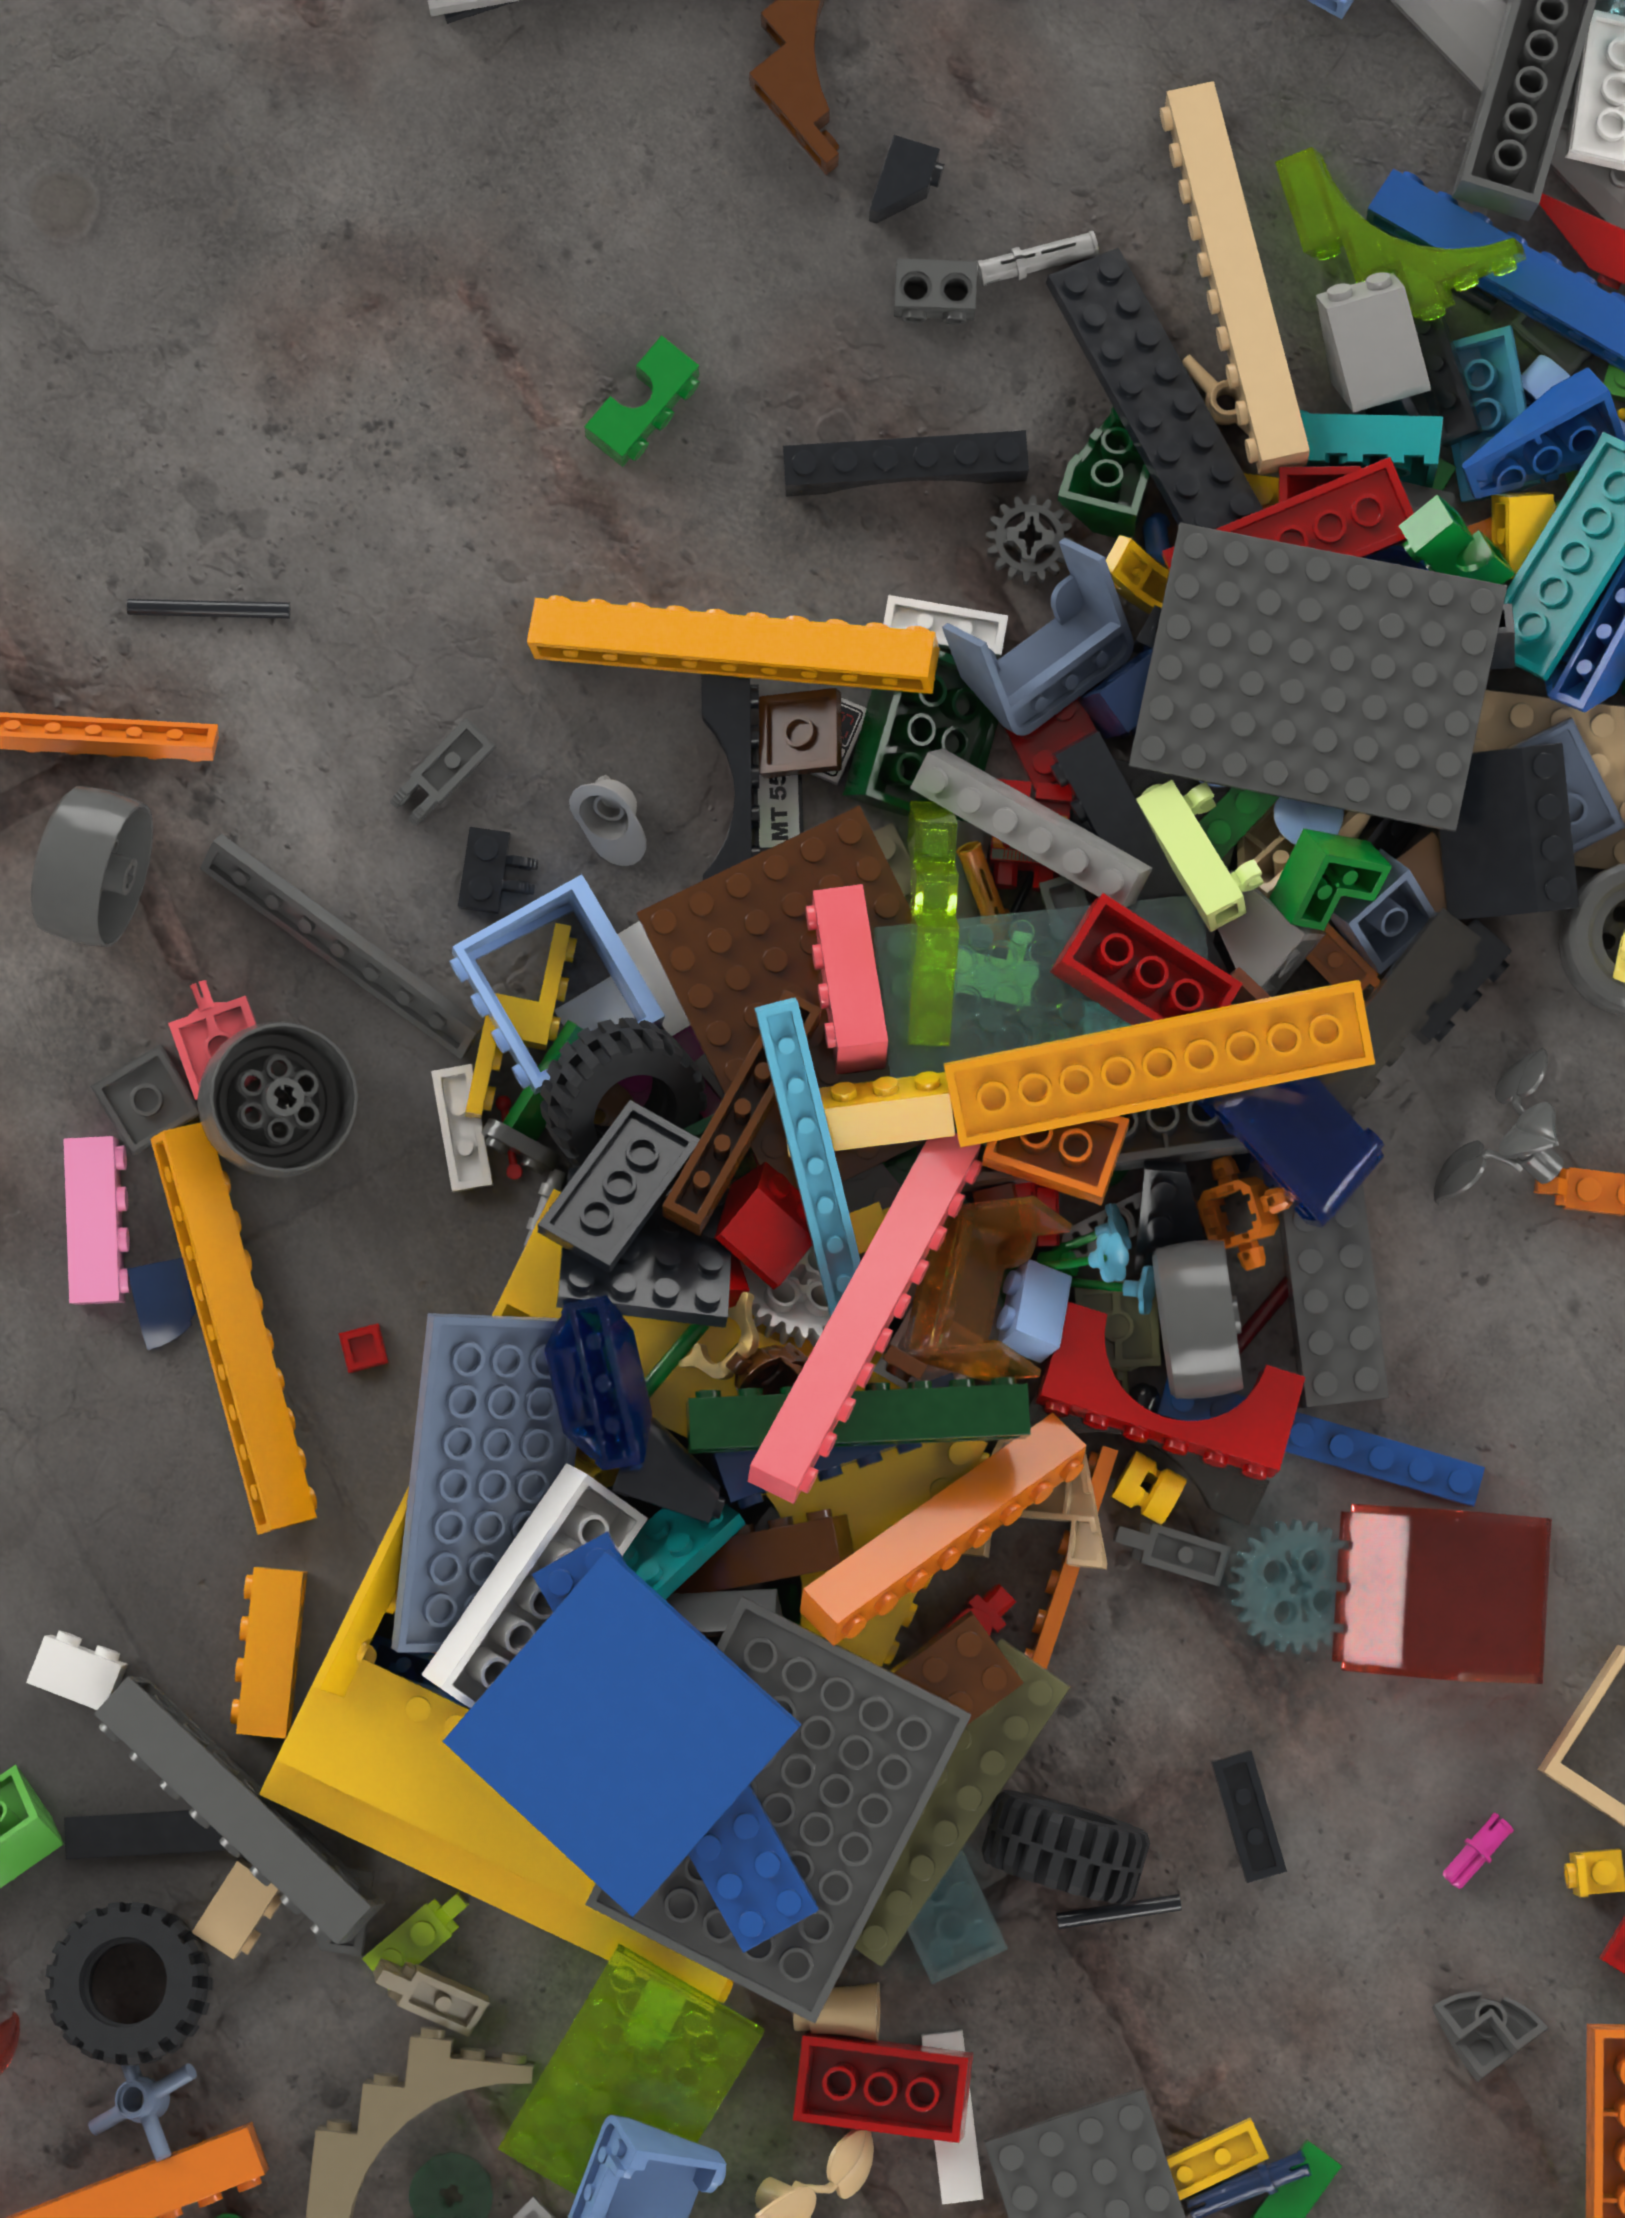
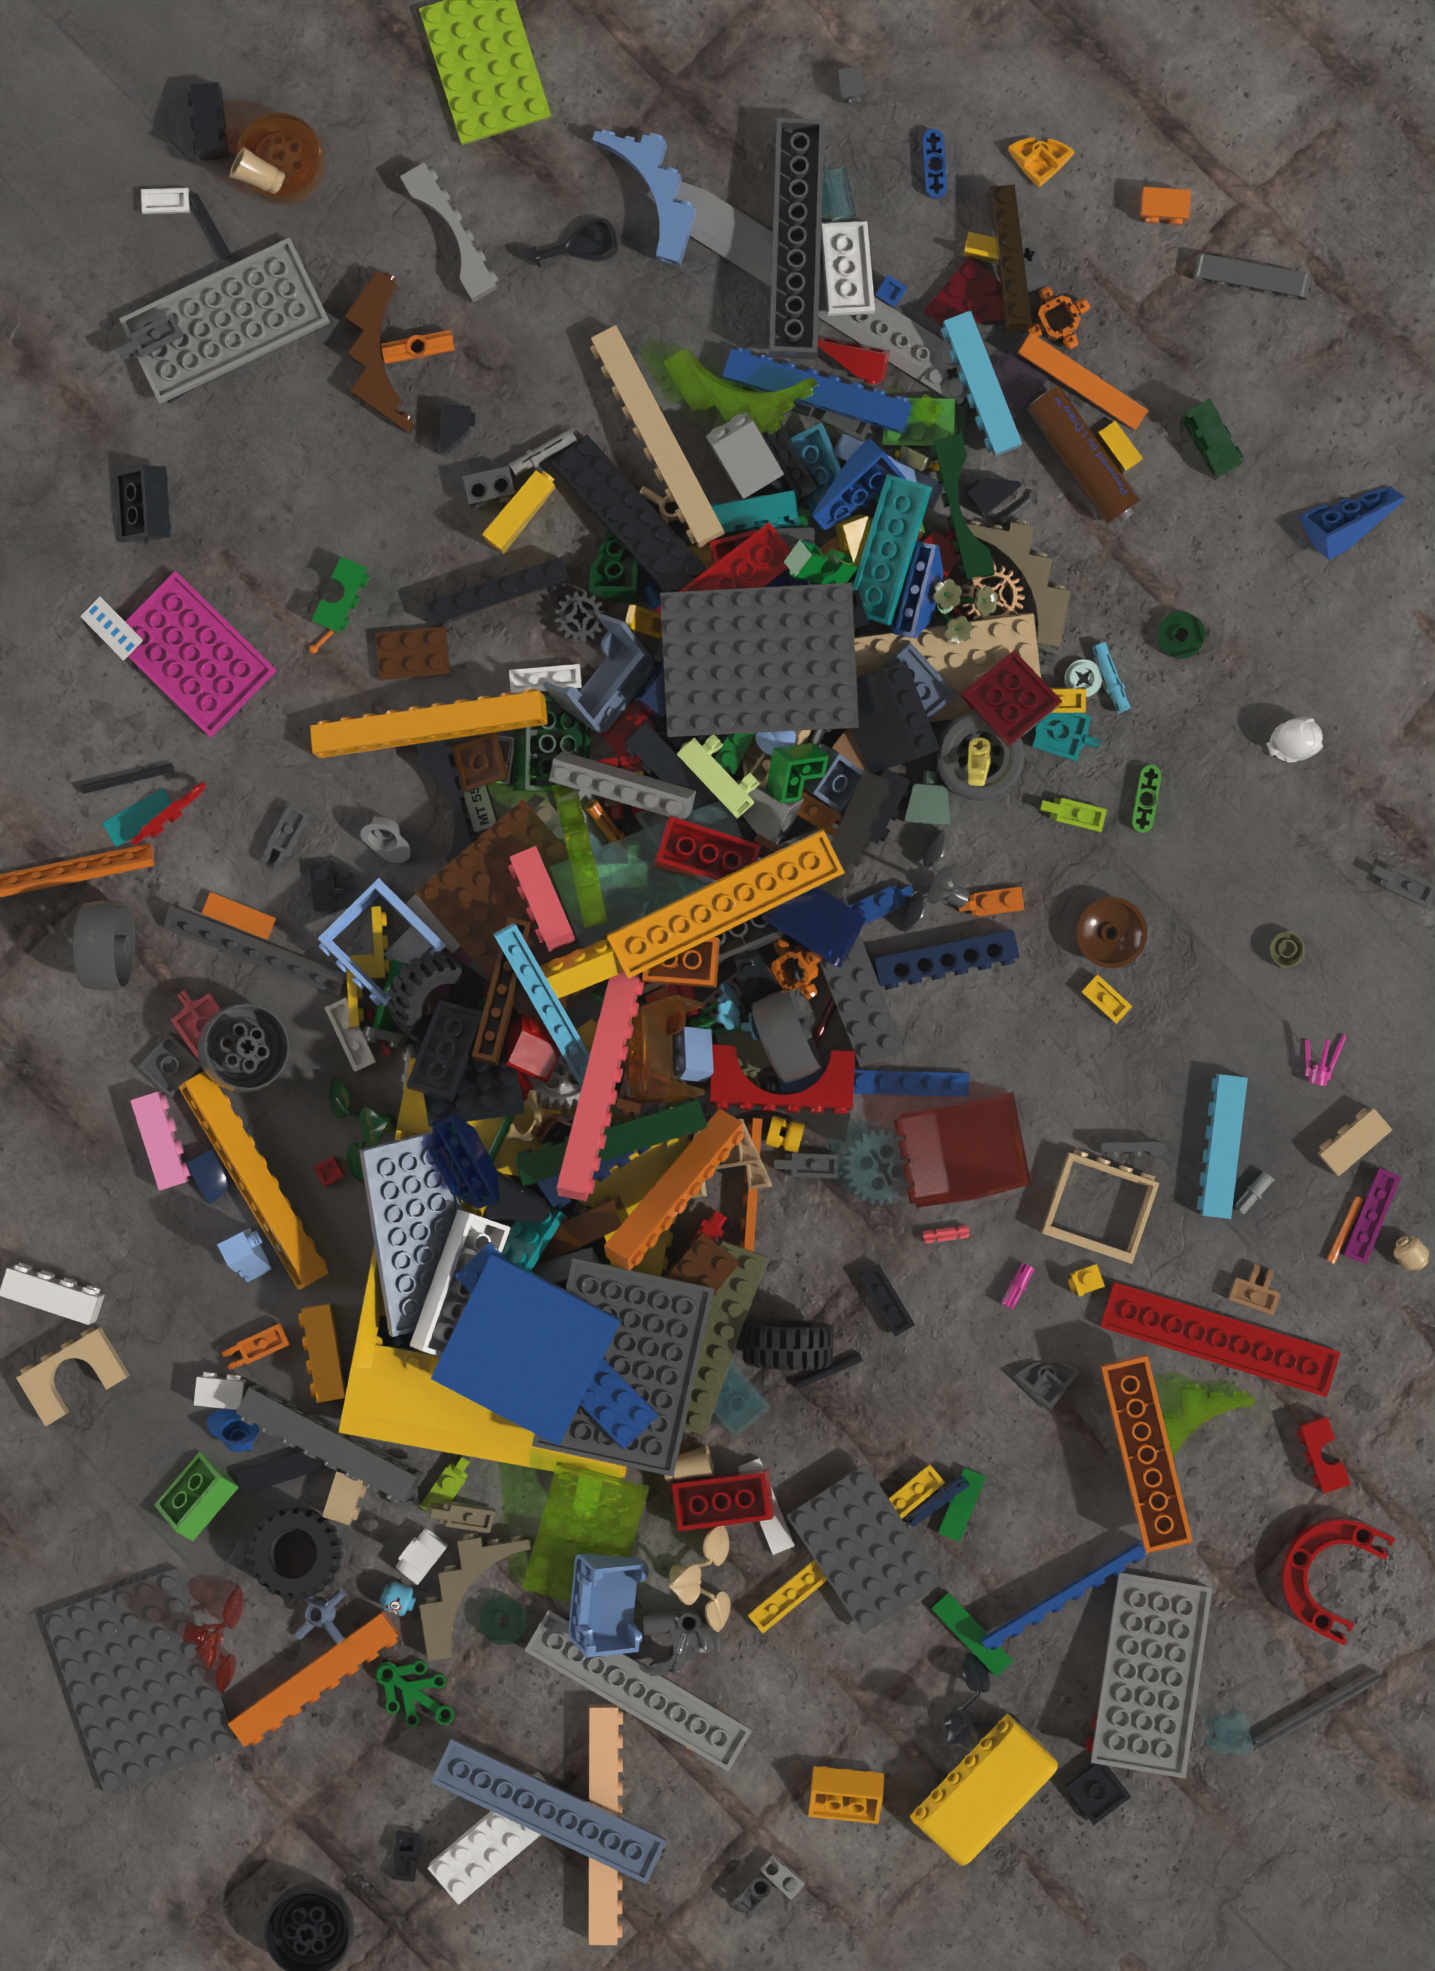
camera: 10 degrees left, 5 degrees up
(79, 1744) = (230, 1429): none -> blue piece
(164, 1611) = (258, 1345): none -> orange hinge
(184, 1446) = (245, 1254): none -> light blue wedge
(210, 678) = (130, 821): none -> teal sticker
(251, 356) = (111, 628): none -> white sticker
(263, 683) = (171, 813): none -> red plate
(281, 2109) = (397, 1598): none -> medium azure head
(330, 882) = (239, 915): none -> orange tile
(341, 2045) = (420, 1555): none -> white piece
(358, 169) = (142, 503): none -> black slope
(373, 434) = (196, 655): none -> dark pink plate
(460, 1280) = (372, 1125): none -> dark green plant
(574, 478) = (314, 648): none -> orange hinge
(736, 528) = (412, 653): none -> reddish brown plate
(904, 38) = (402, 349): none -> orange piece
(973, 342) = (519, 511): none -> yellow slope
(1377, 1730) = (946, 1234): none -> coral axle
(1418, 1143) = (883, 902): none -> blue hinge
(1531, 996) = (928, 802): none -> sand green torso
(1601, 1261) = (1004, 940): none -> dark blue brick

